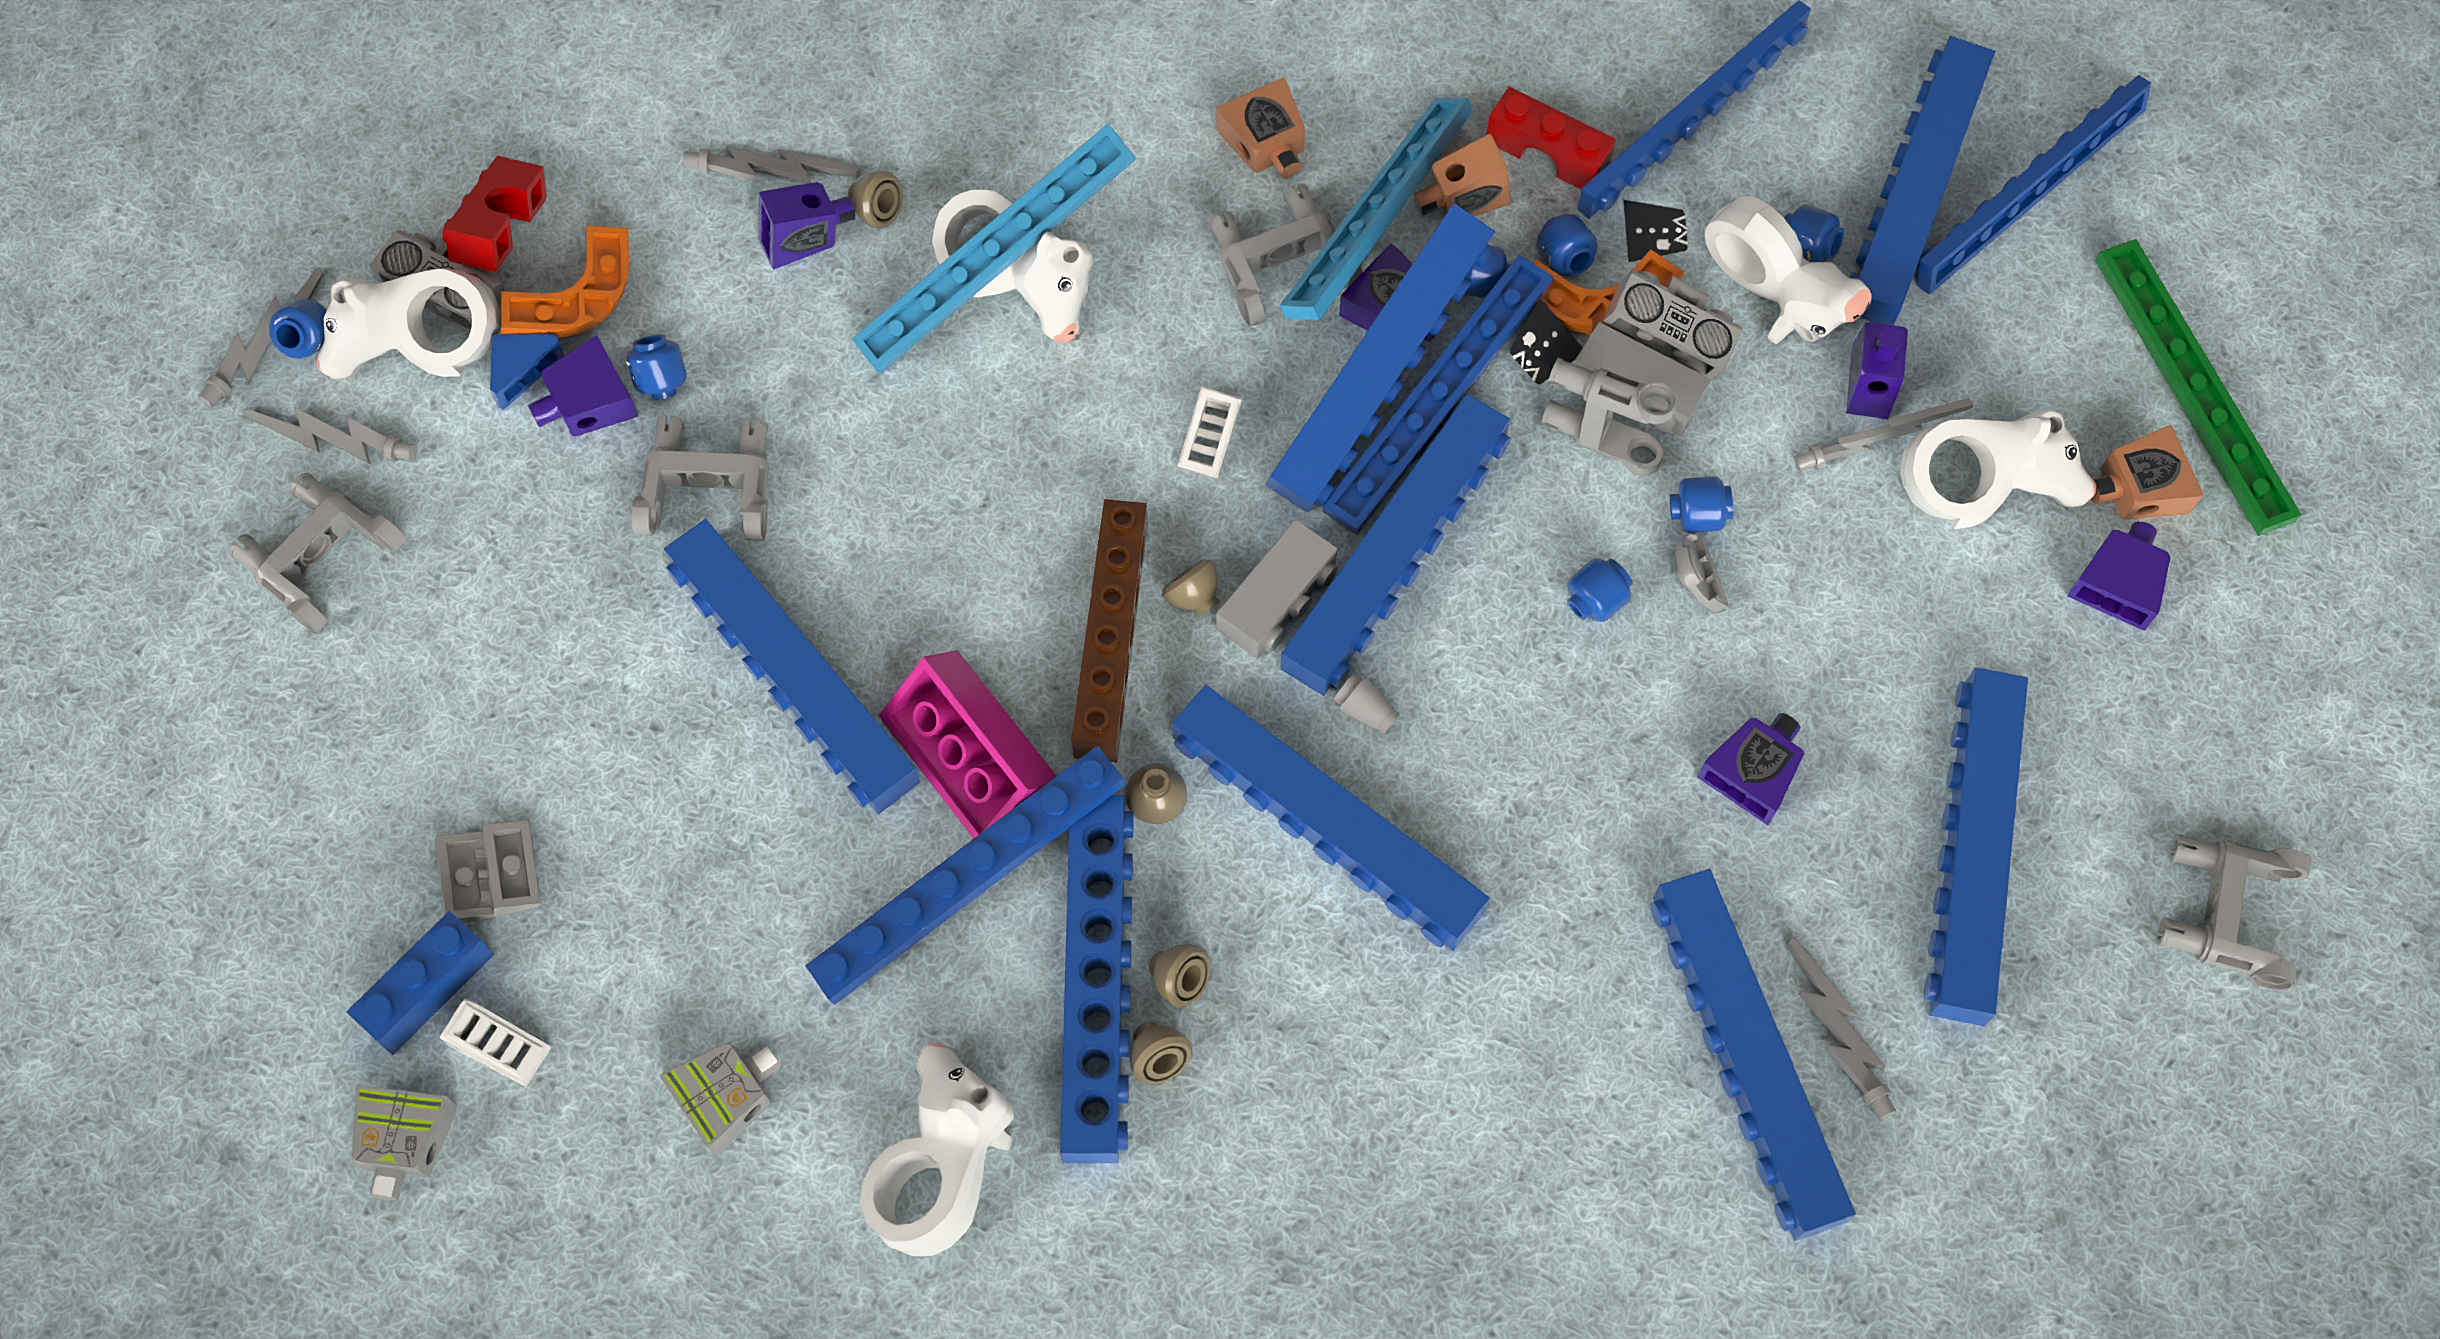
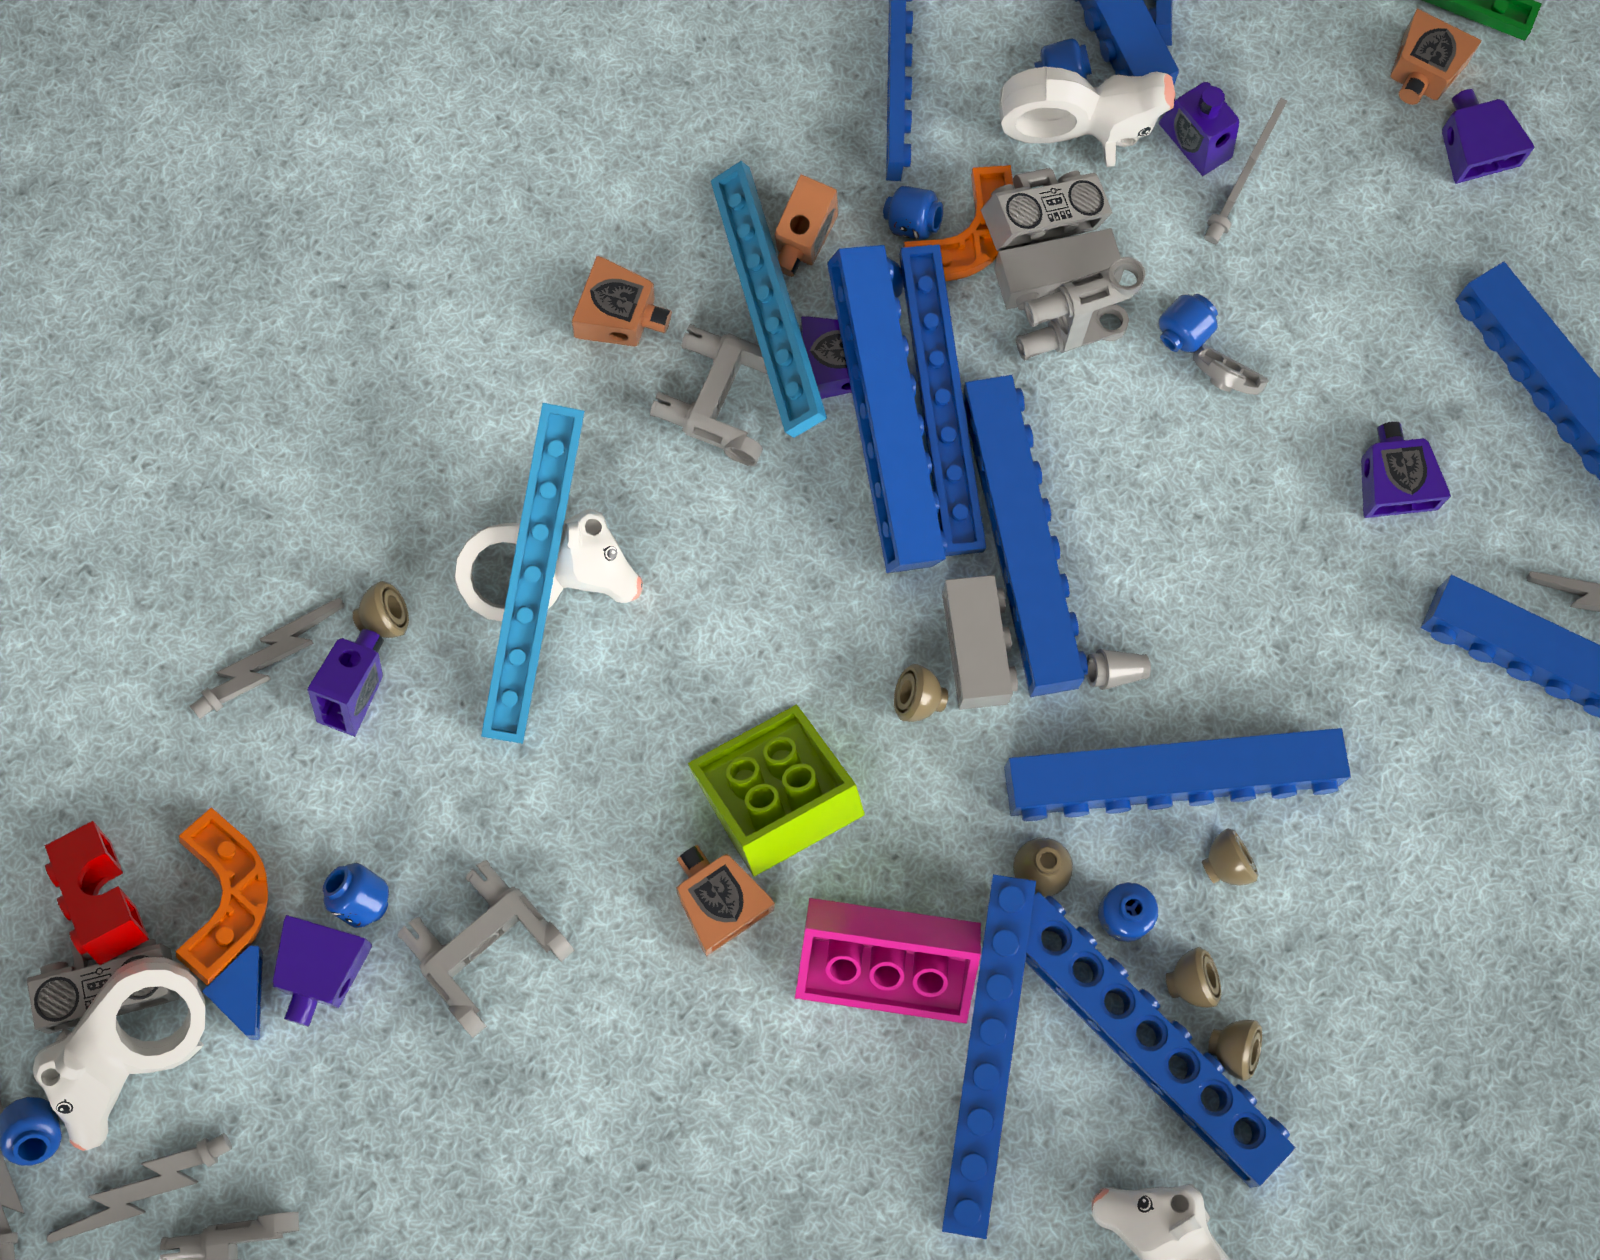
camera: 50 degrees left, 5 degrees up
(792, 667) = (697, 1025): blue brick -> none
(894, 596) = (719, 898): none -> nougat torso
(1016, 560) = (777, 789): none -> lime slope
(1110, 629) = (898, 780): reddish brown brick -> none
(1169, 886) = (1114, 910): none -> blue head
(1219, 401) = (809, 536): white slope -> none
(1302, 916) = (1230, 860): none -> dark tan brick
(1542, 342) = (971, 300): black sticker -> none
(1574, 146) = (800, 145): red arch -> none
(1599, 590) = (1185, 445): blue head -> none
(1653, 229) = (952, 152): black sticker -> none
(2017, 454) = (1342, 113): white animal -> none

